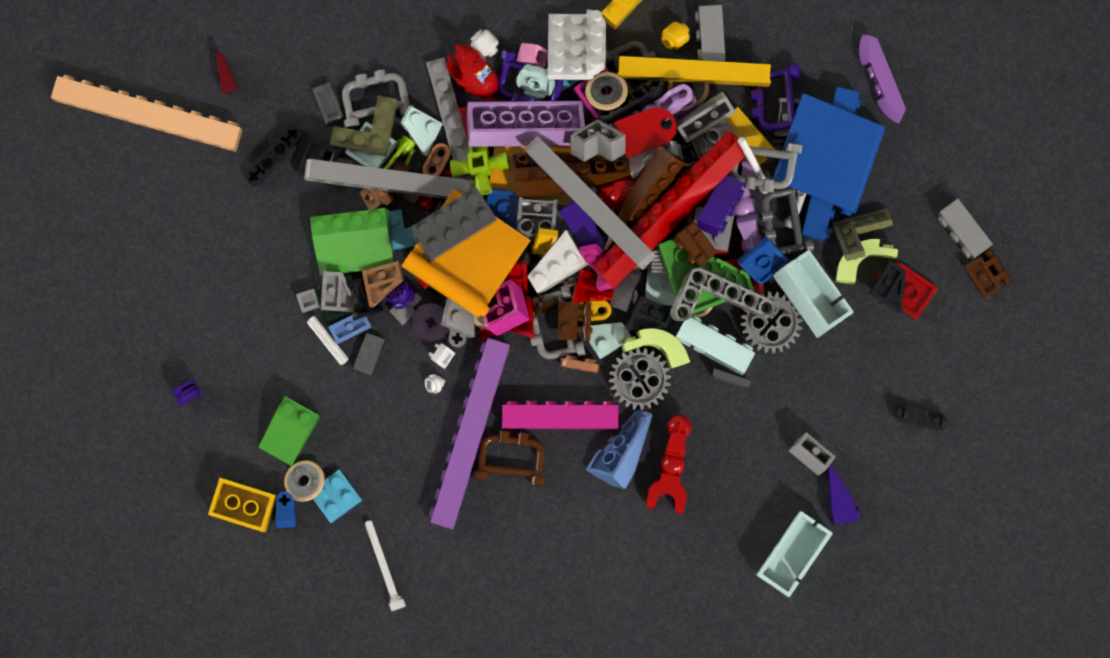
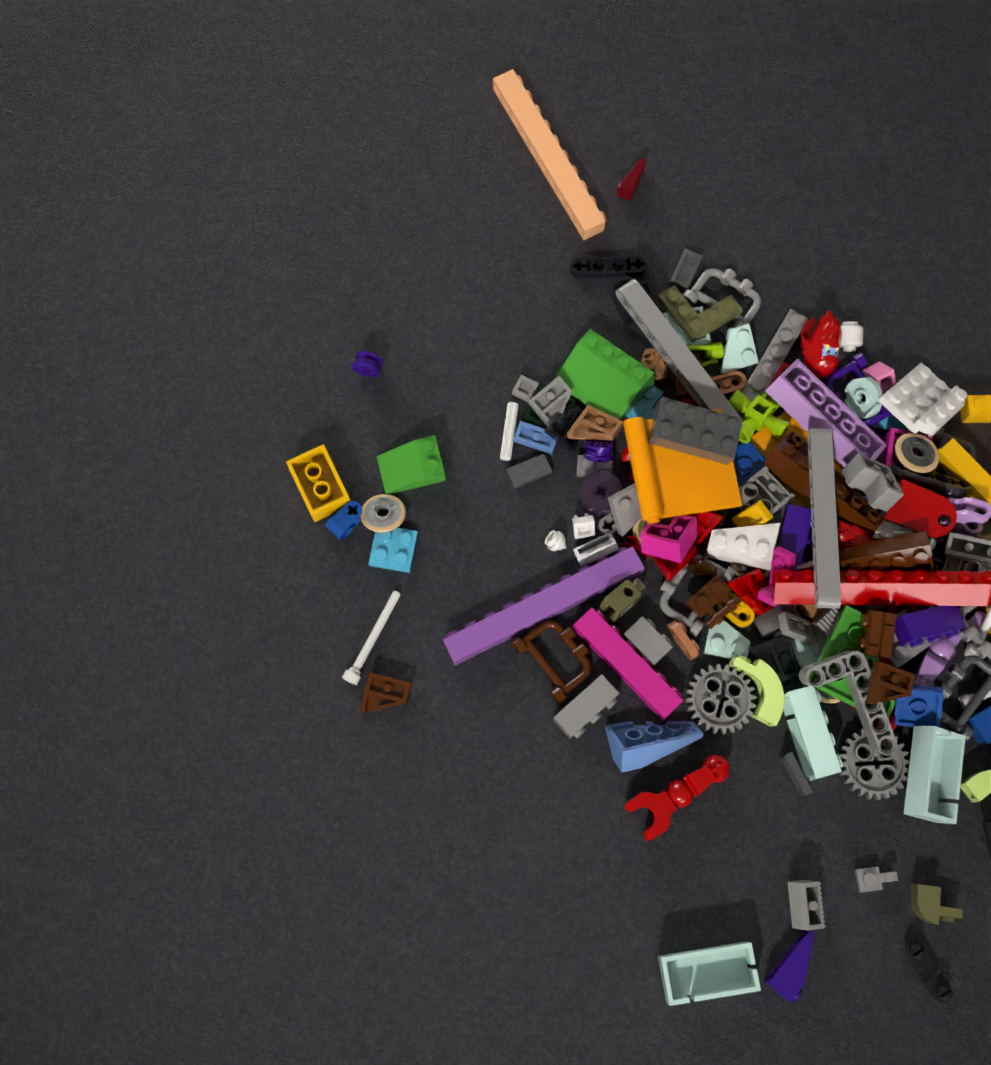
camera: 45 degrees right, 10 degrees down
(427, 592) = (384, 692): none -> reddish brown wing
(465, 363) = (596, 549): none -> flat silver tile
(515, 385) = (621, 600): none -> olive torso
(558, 389) = (648, 640): none -> light grey brick
(563, 470) = (586, 707): none -> light grey brick
(642, 286) = (797, 628): none -> light grey plate
(731, 270) = (888, 683): none -> reddish brown wing
(836, 396) = (871, 879): none -> light grey plate
(882, 378) = (926, 905): none -> olive brick

